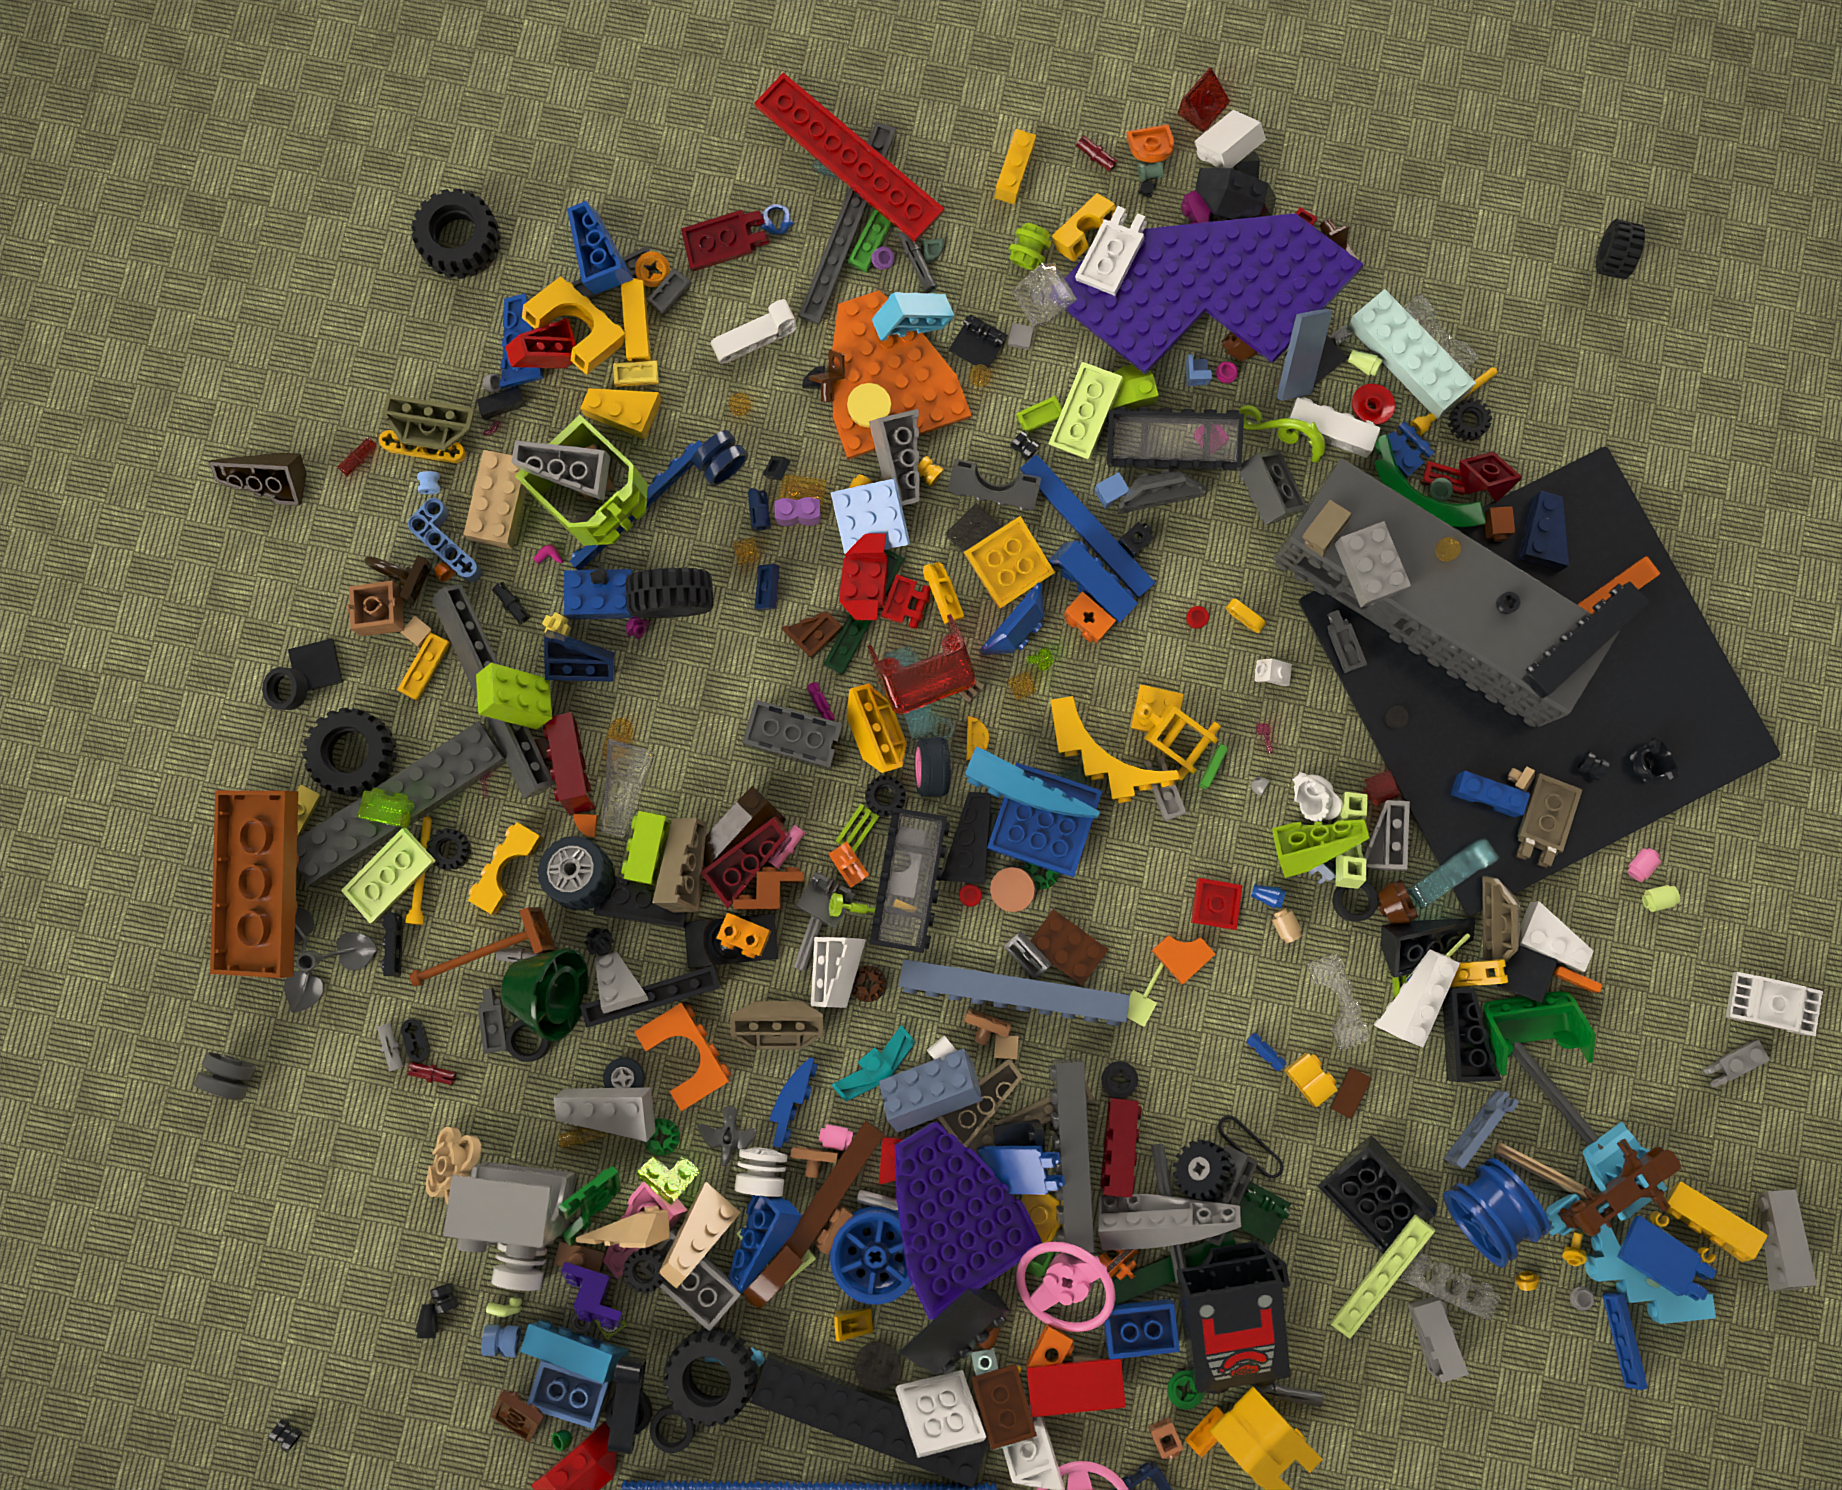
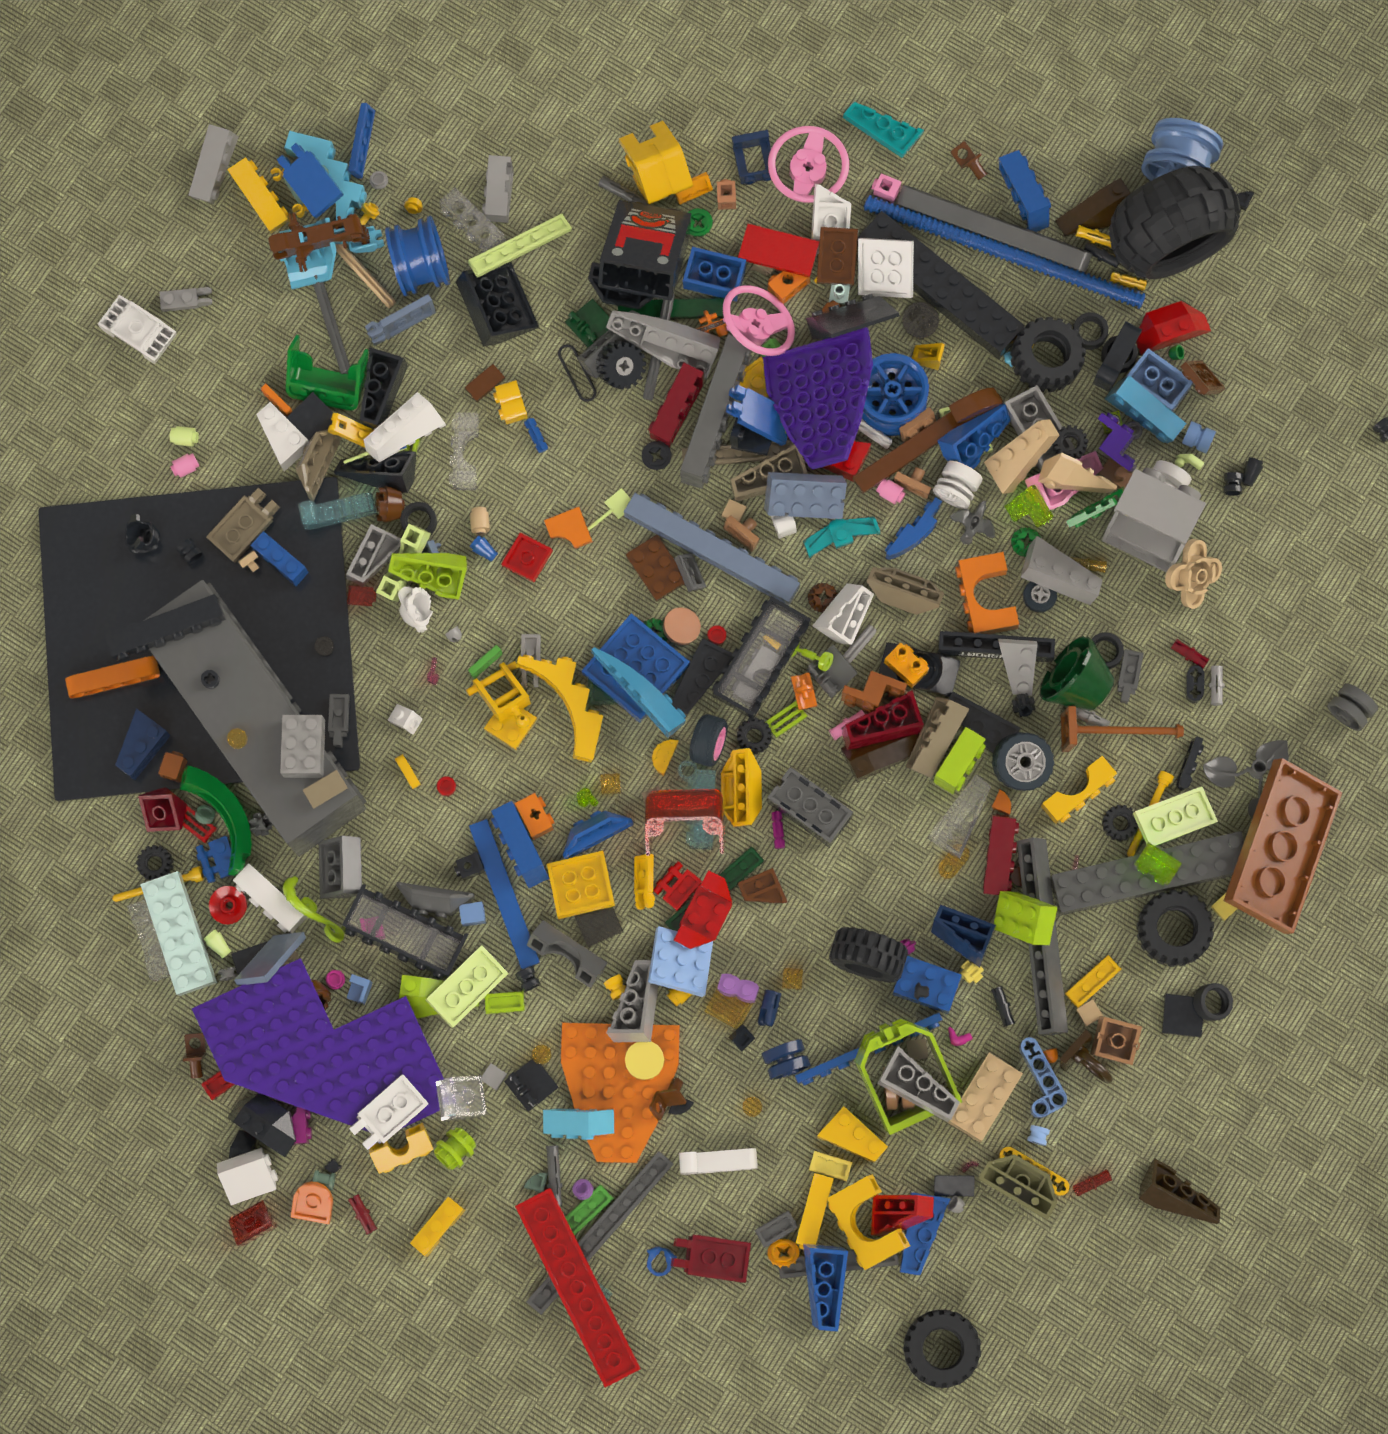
camera: 150 degrees left, 5 degrees down
(767, 587) = (786, 940): dark blue plate -> none

